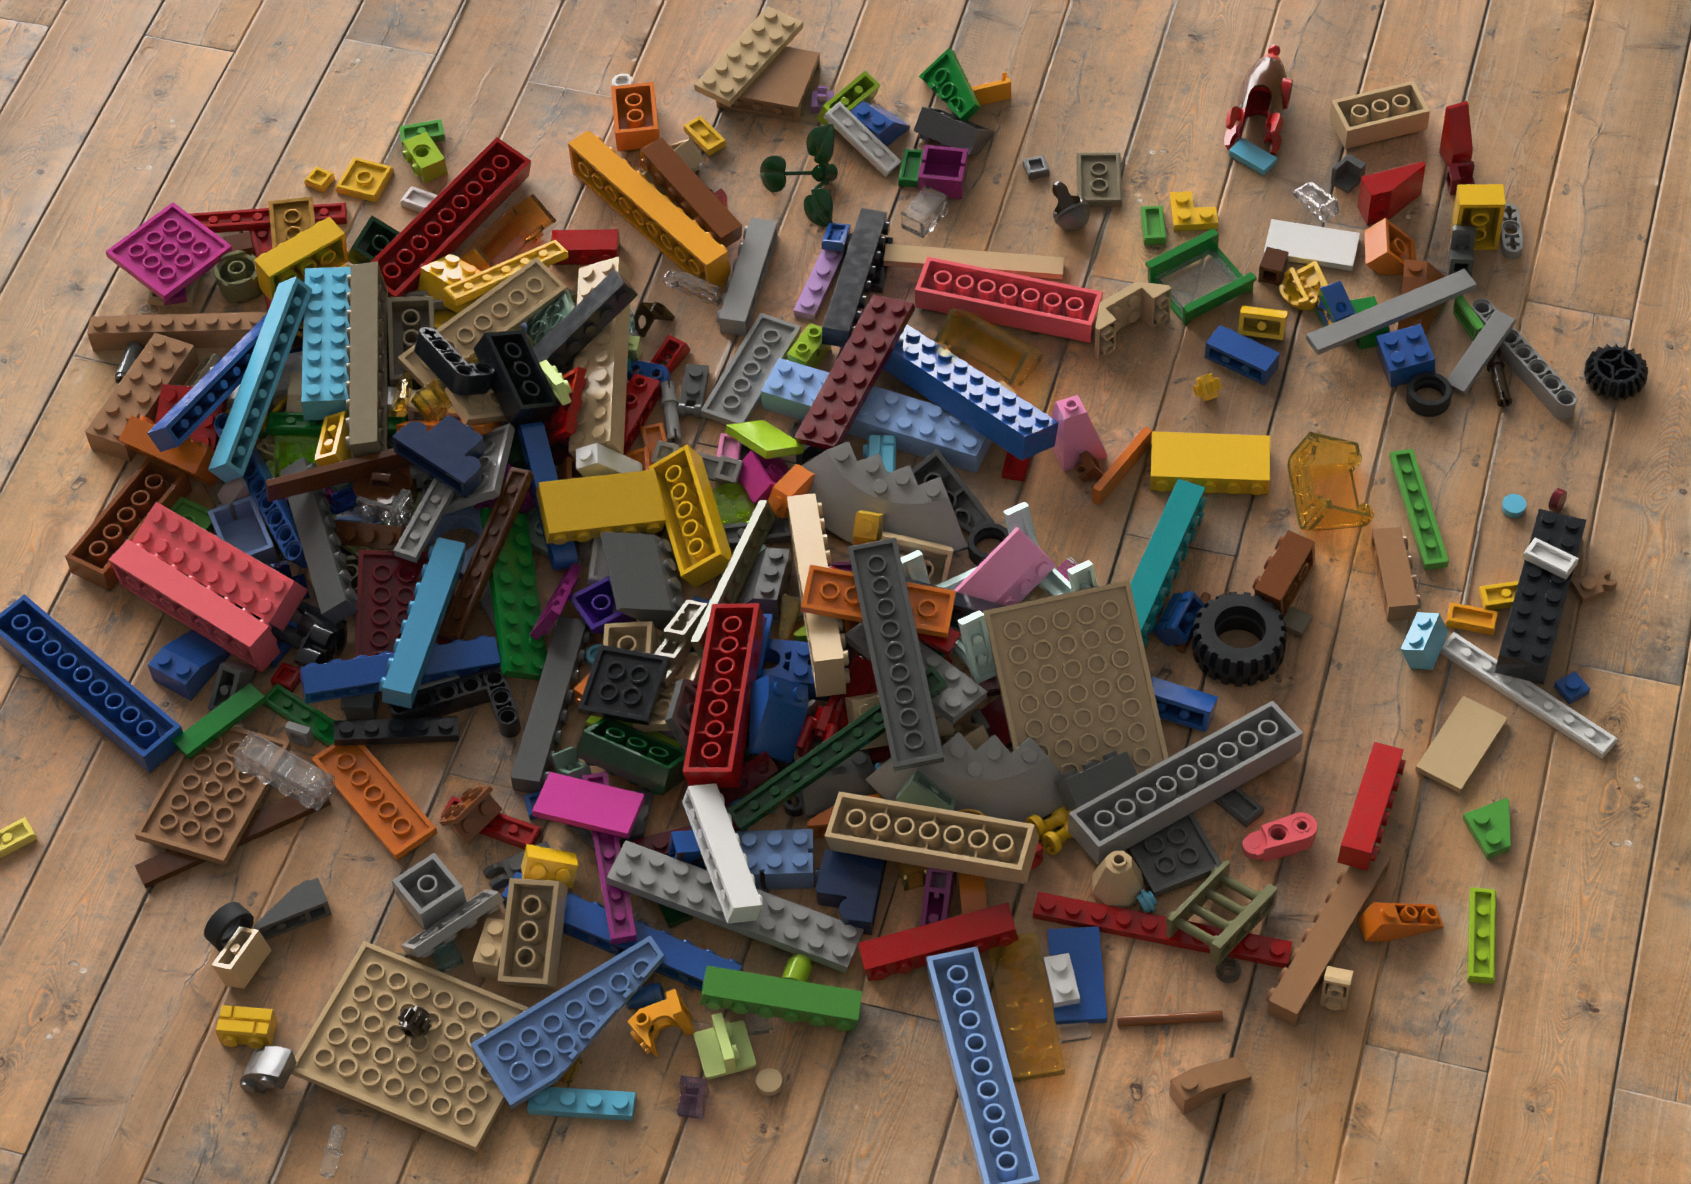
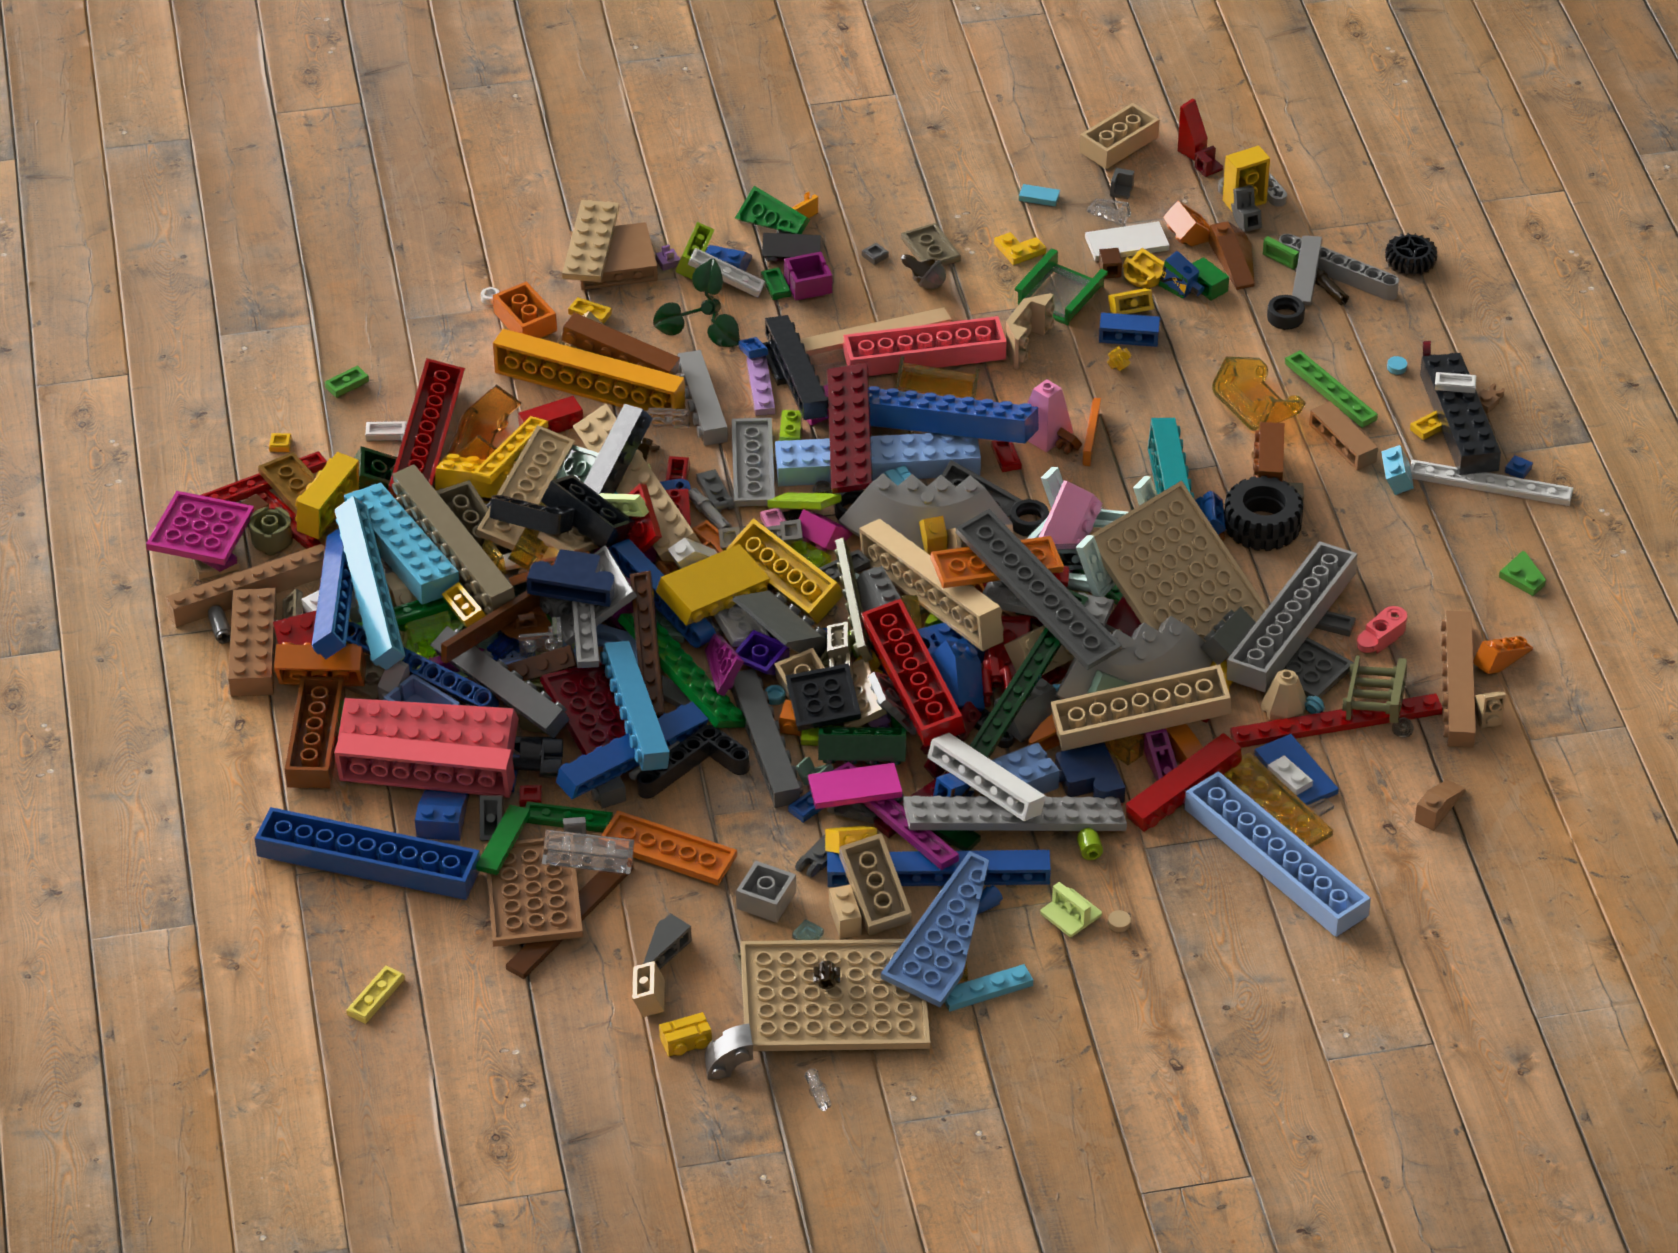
camera: 30 degrees left, 10 degrees down
(225, 923) = (621, 972): black tyre -> none
(364, 179) = (320, 430): yellow tile -> none
(396, 731) = (653, 797): black plate -> none
(424, 157) = (364, 397): lime brick -> none
(446, 928) = (802, 904): light grey plate -> none
(471, 813) = (760, 826): dark orange bracket -> none
(507, 829) = (775, 834): red tile -> none
(659, 1016) = (1017, 899): light orange tile -> none
(693, 1097) = (1070, 950): panel -> none
(758, 1025) = (1083, 883): clear plate -> none
(780, 998) = (1094, 858): bright green brick -> none
(794, 482) = (853, 519): orange slope -> none
(924, 211) = (811, 309): clear brick -> none
(1153, 225) = (995, 265): bright green tile -> none
(1169, 1018) = (1382, 773): dark orange bar -> none
(1184, 704) = (1260, 569): blue brick -> none
(1212, 461) = (1178, 398): yellow brick -> none
(1262, 93) = (1025, 147): piece -> none
(1371, 806) = (1436, 584): red brick -> none
(1389, 191) = (1163, 185): red slope -> none
(1391, 311) = (1224, 263): light grey tile -> none
(1404, 354) = (1252, 290): blue brick -> none
(1461, 744) = (1466, 529): tan tile -> none
(1471, 618) = (1419, 447): light orange tile -> none
(1481, 935) = (1563, 643): lime tile -> none

